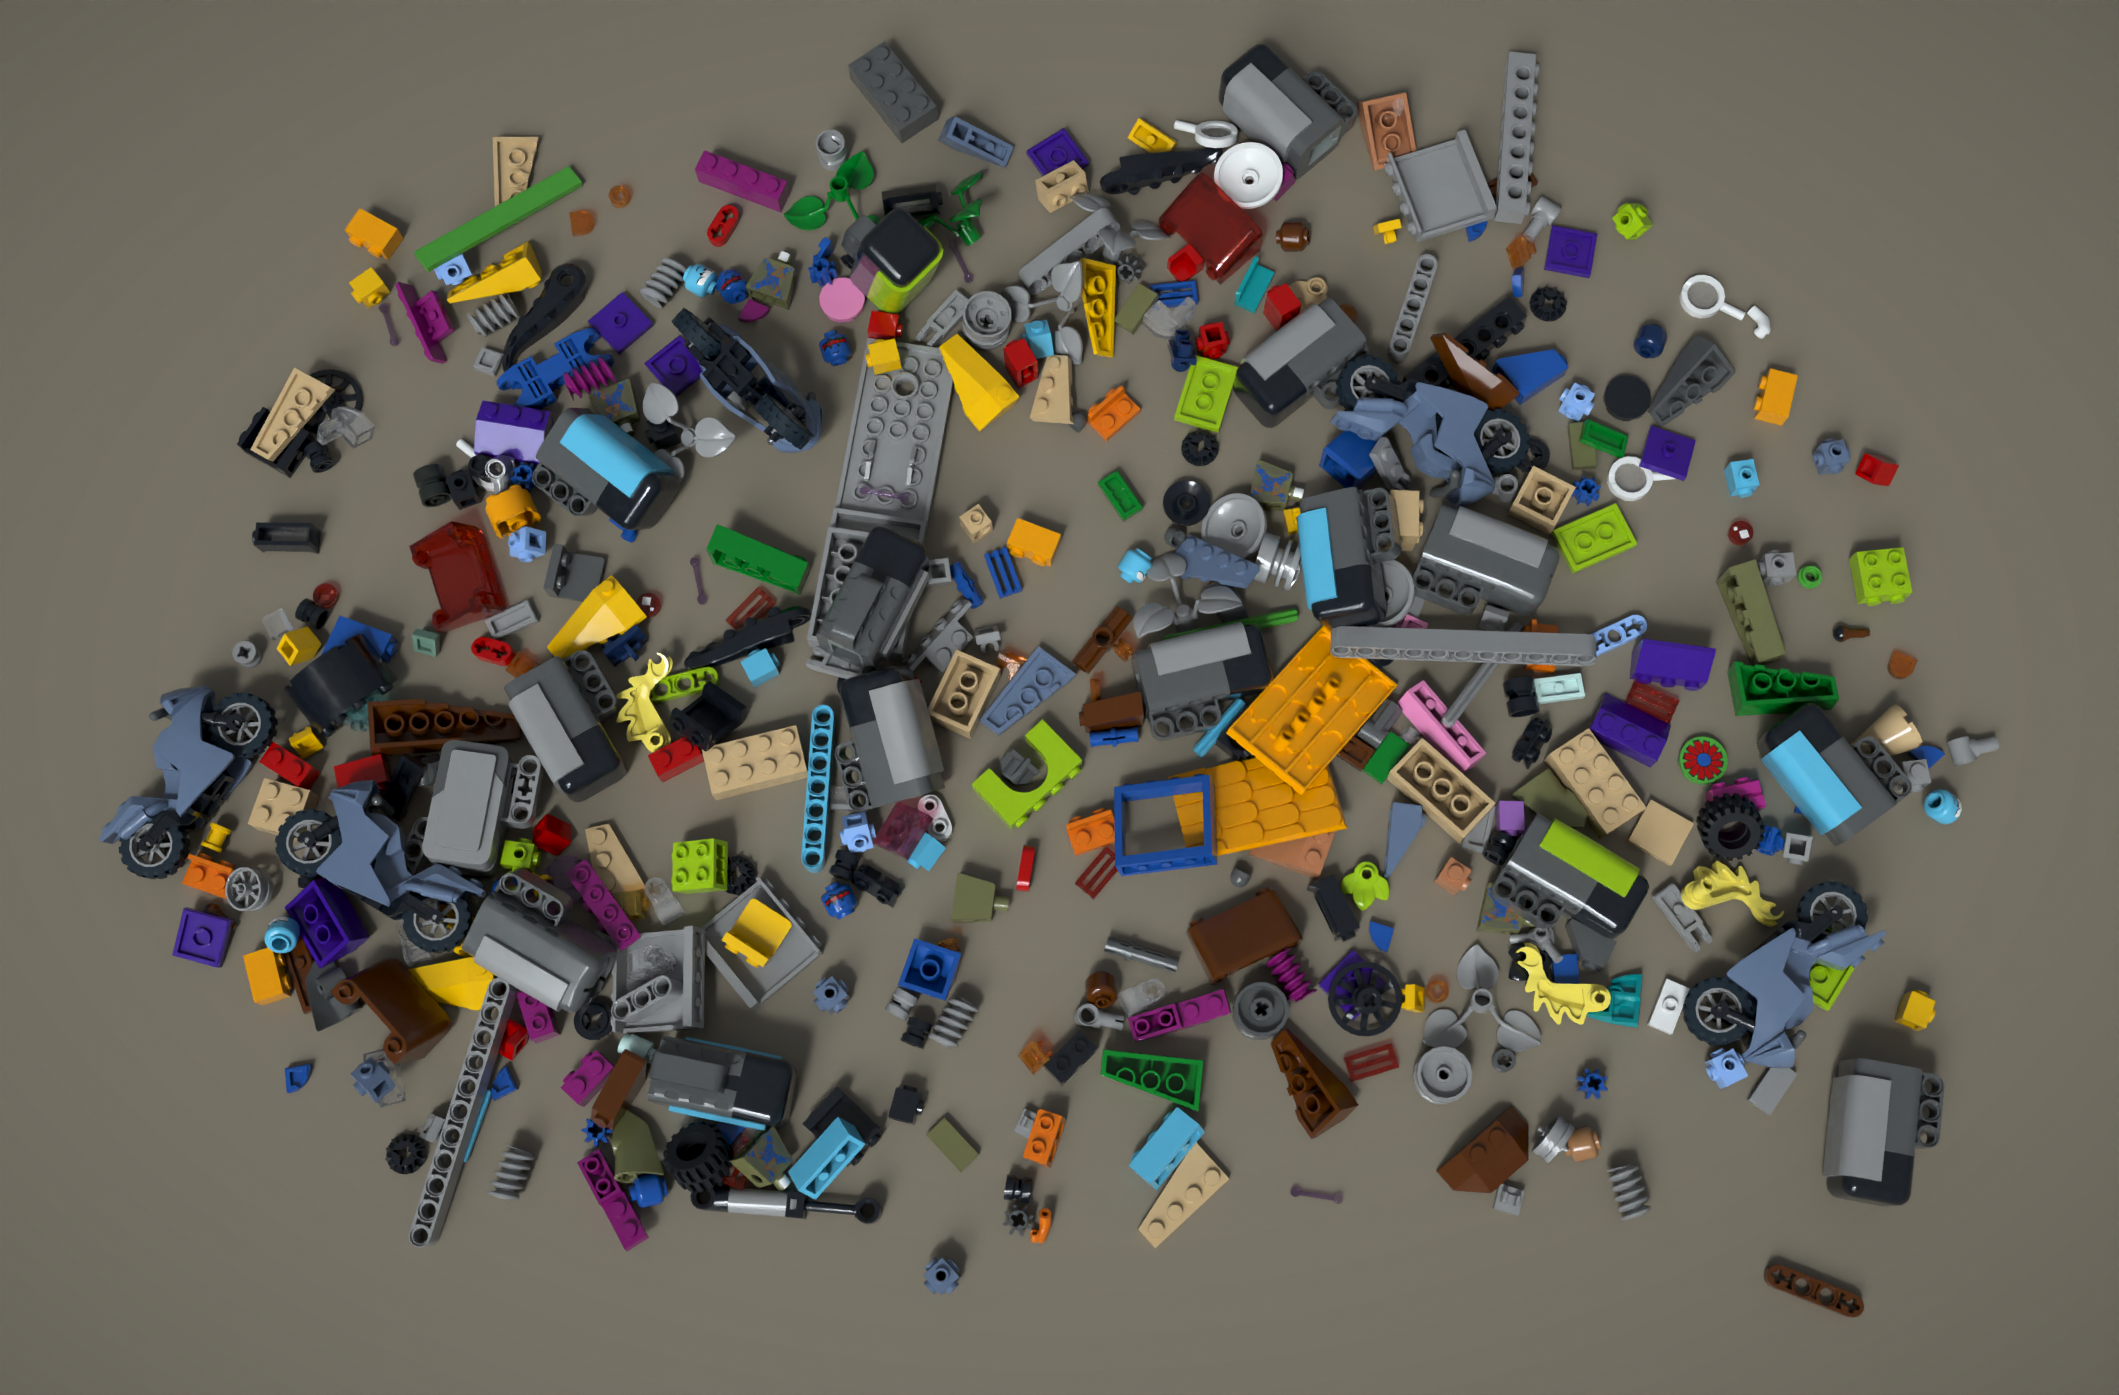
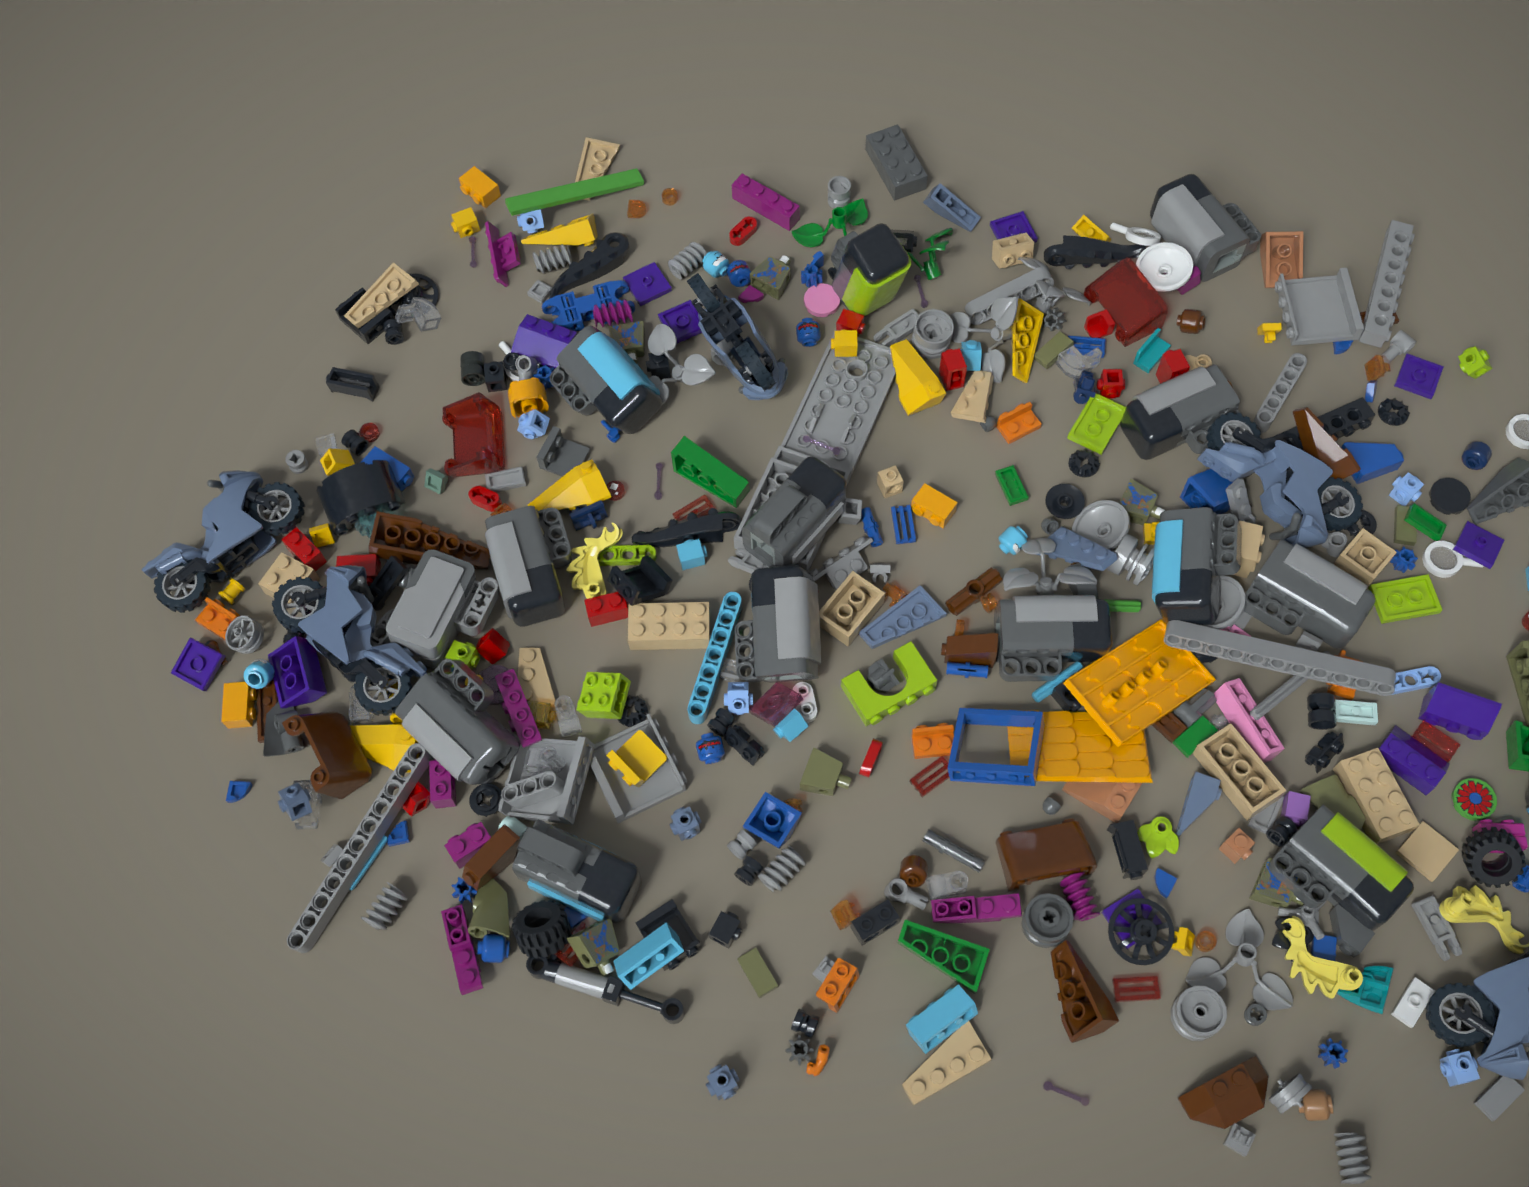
camera: 15 degrees right, 10 degrees down
(411, 1164) = (306, 881): black gear -> none

